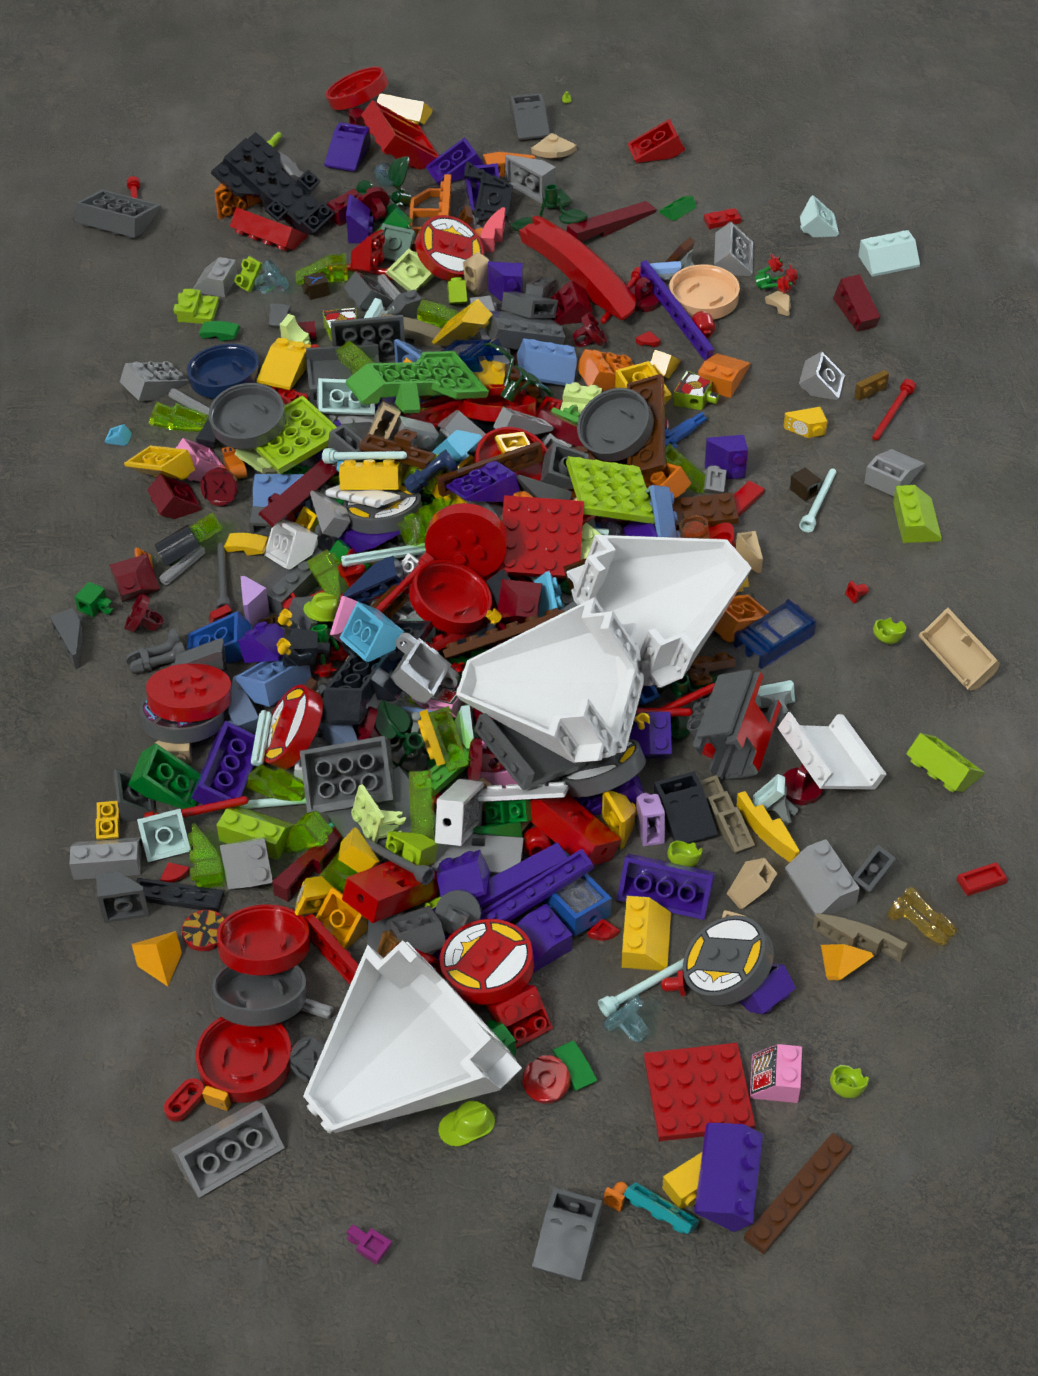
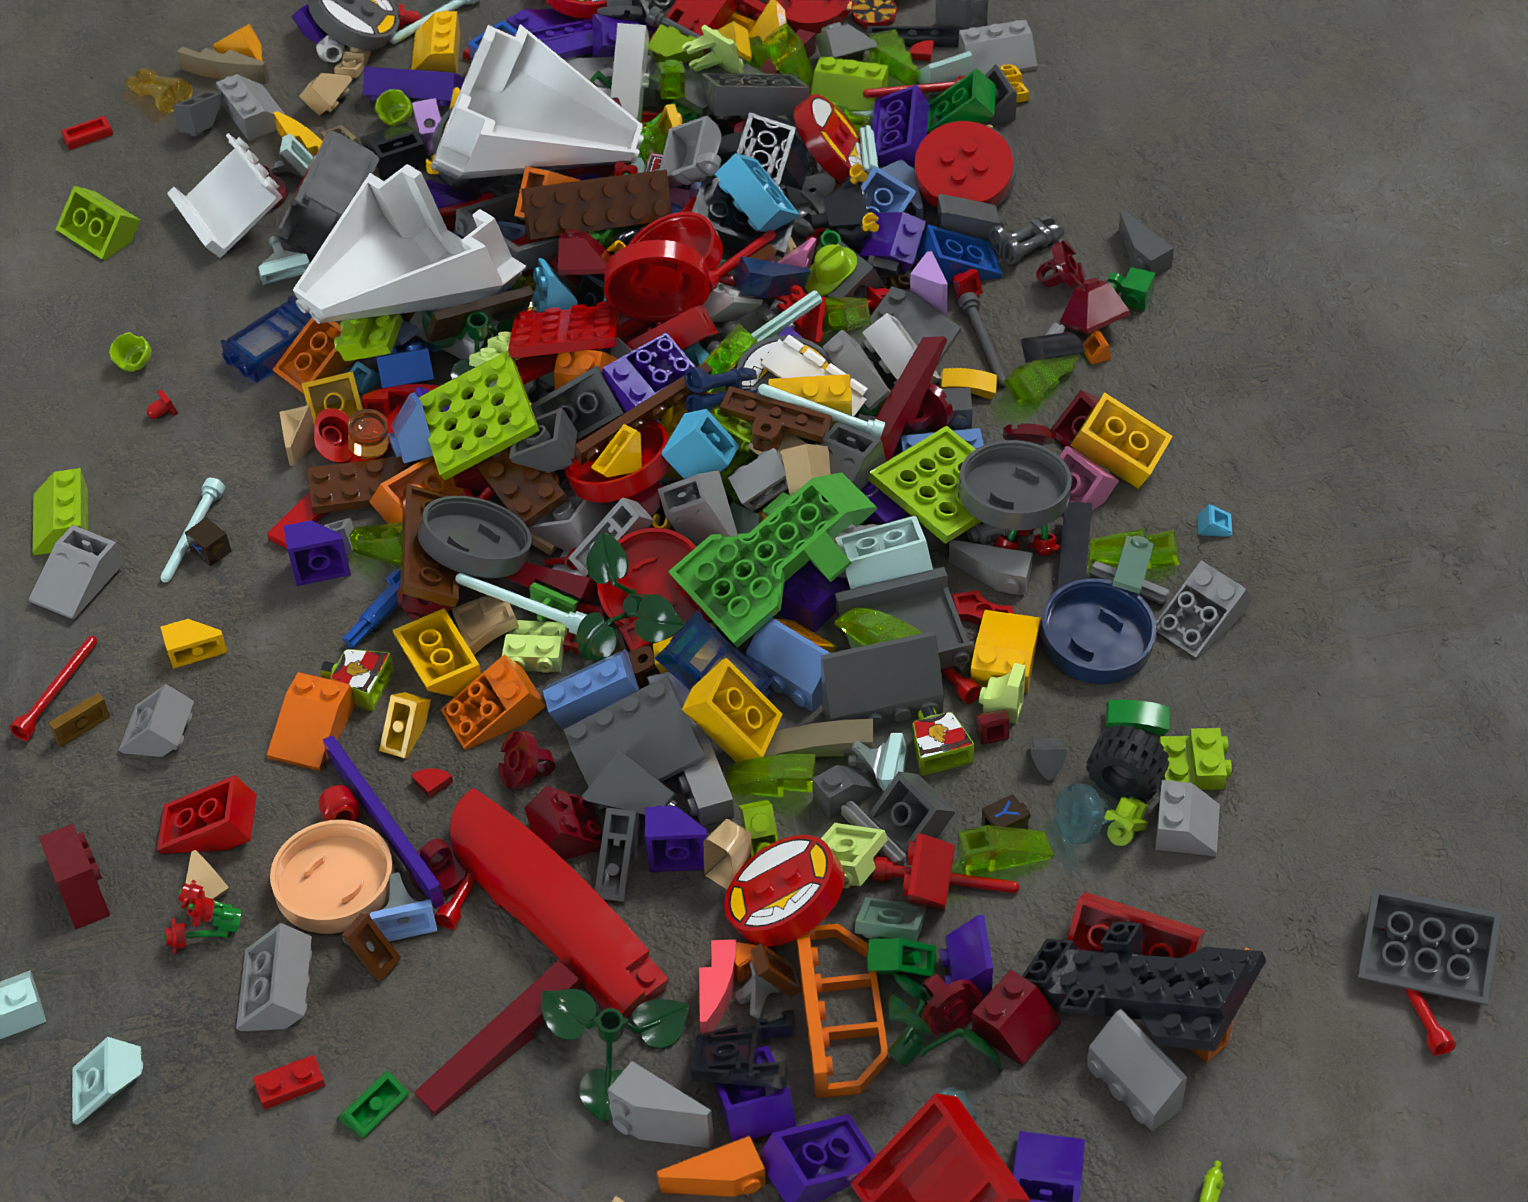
camera: 175 degrees right, 0 degrees up
(188, 391) = (1133, 563): none -> sand green slope
(238, 288) = (1127, 763): none -> black tyre
(554, 400) = (570, 620): none -> light aqua piece
(781, 326) = (208, 819): none -> red slope
(960, 650) = (53, 336): tan container -> none

